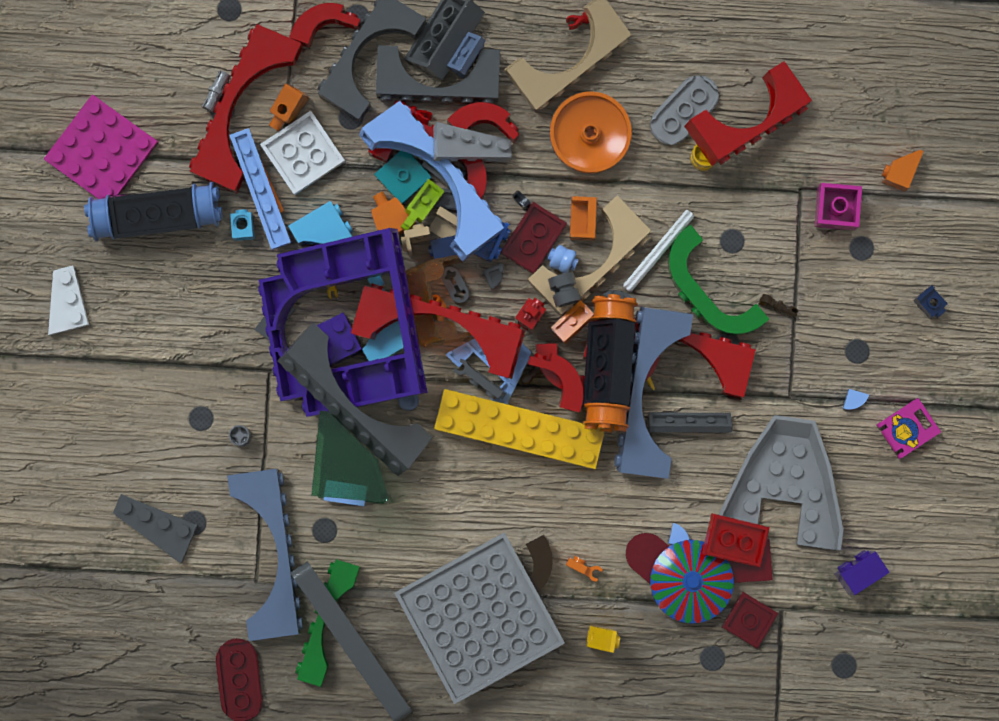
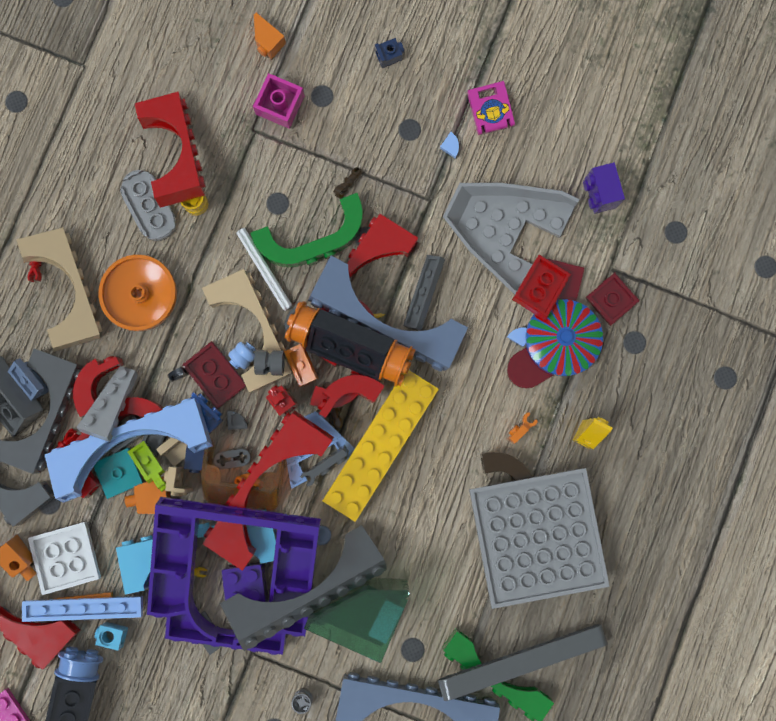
camera: 70 degrees left, 0 degrees up
(583, 218) = (212, 325): orange panel -> none

